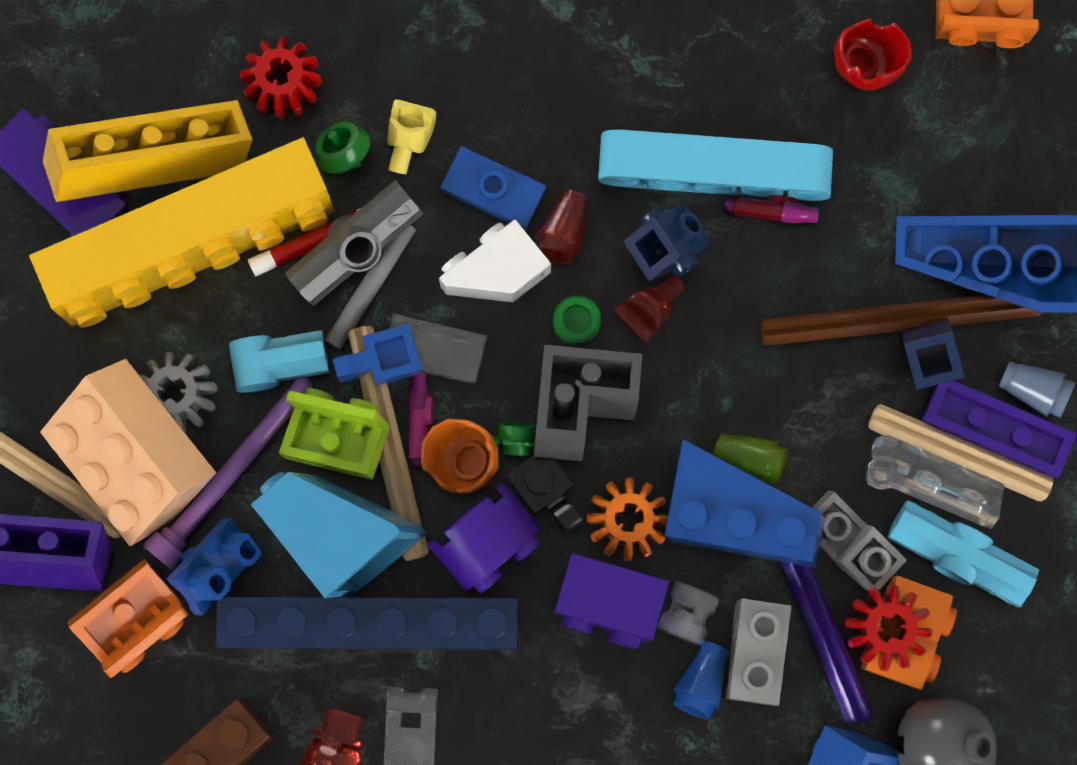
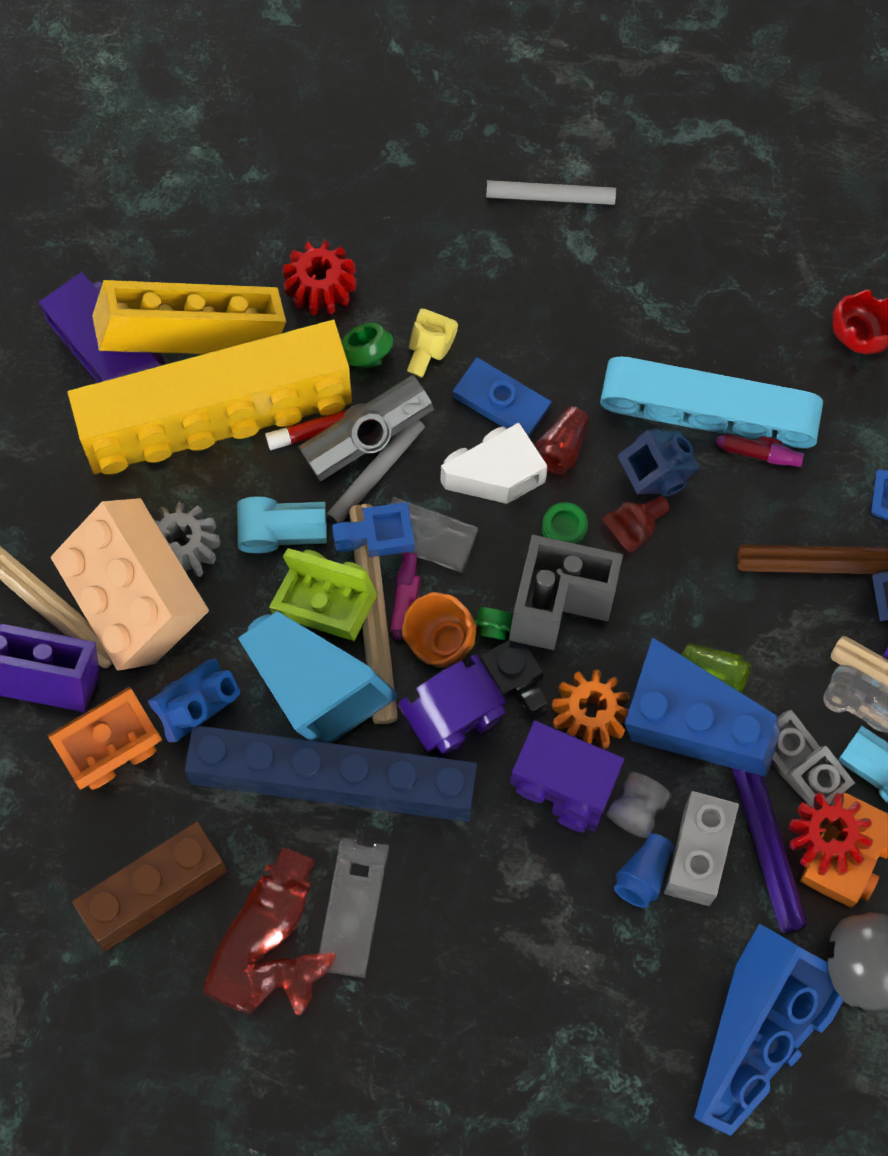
camera: 10 degrees right, 10 degrees down
(170, 542) = (153, 677): medium lavender piece -> none

